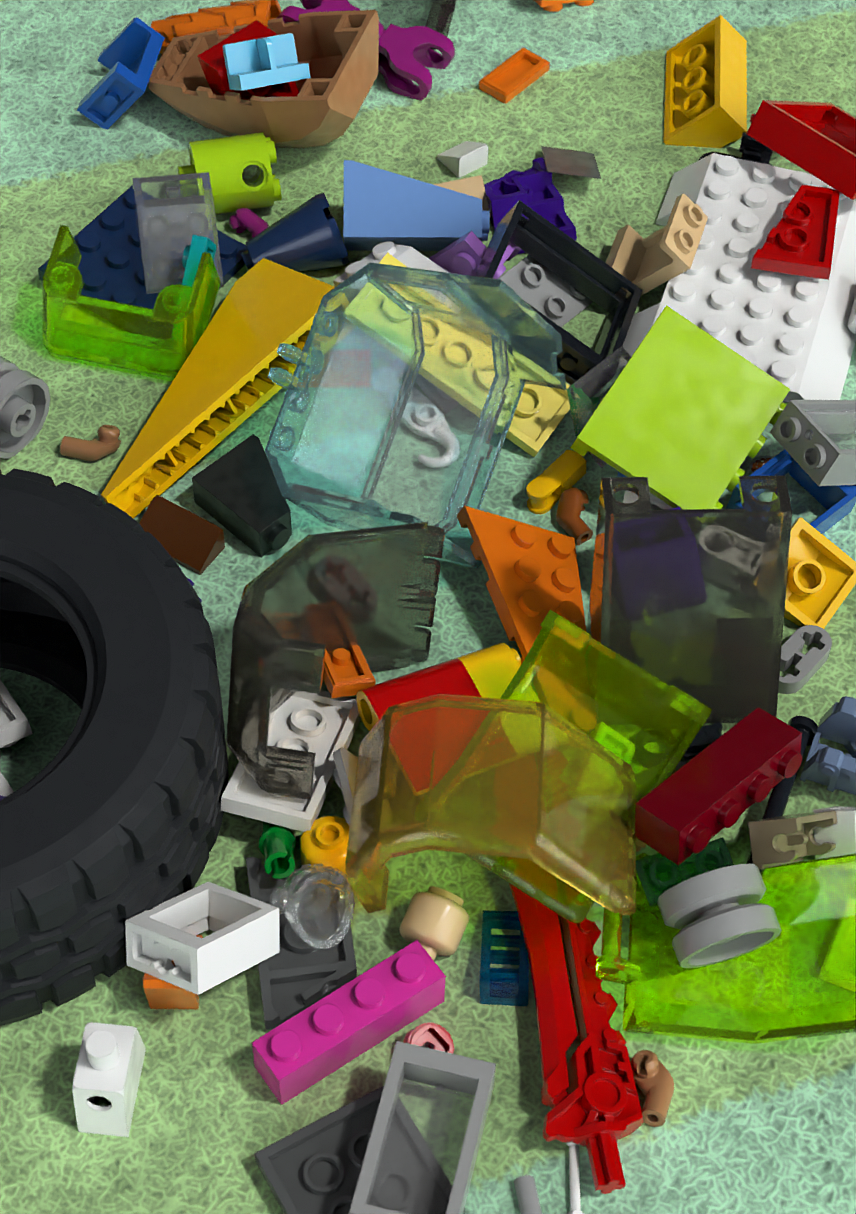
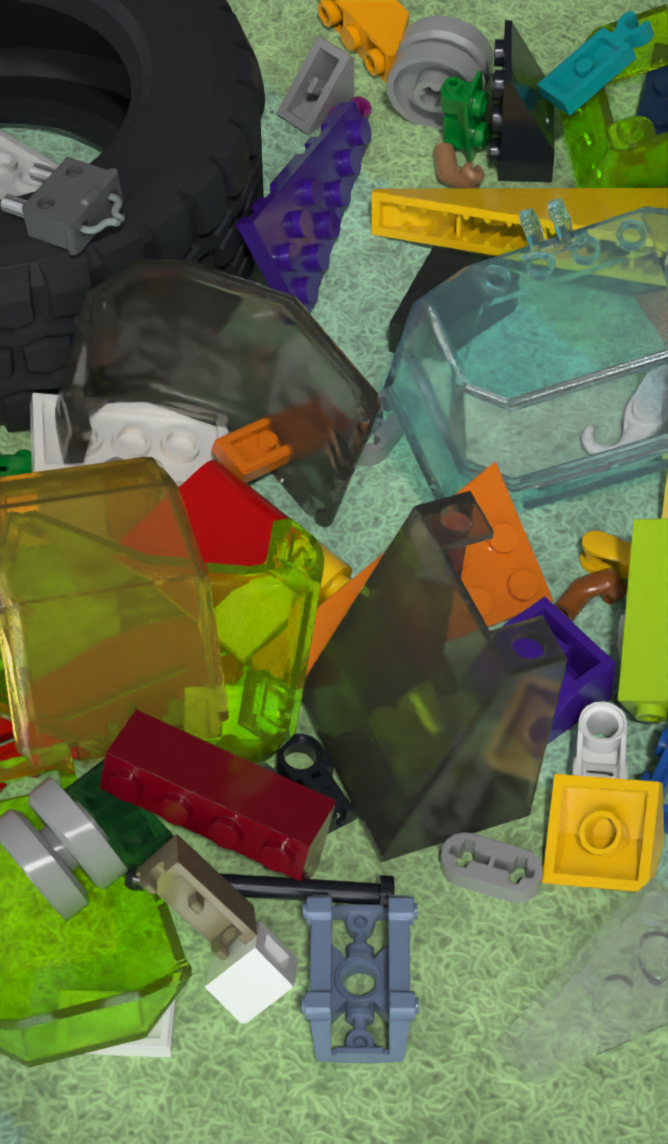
camera: 70 degrees right, 0 degrees up
(59, 407) = (465, 114): none -> green hinge
(83, 371) = (523, 116): none -> black slope
(93, 294) = (594, 64): none -> teal plate
(157, 636) = (69, 204): none -> dark grey piece
(183, 534) = (374, 276): reddish brown slope -> none

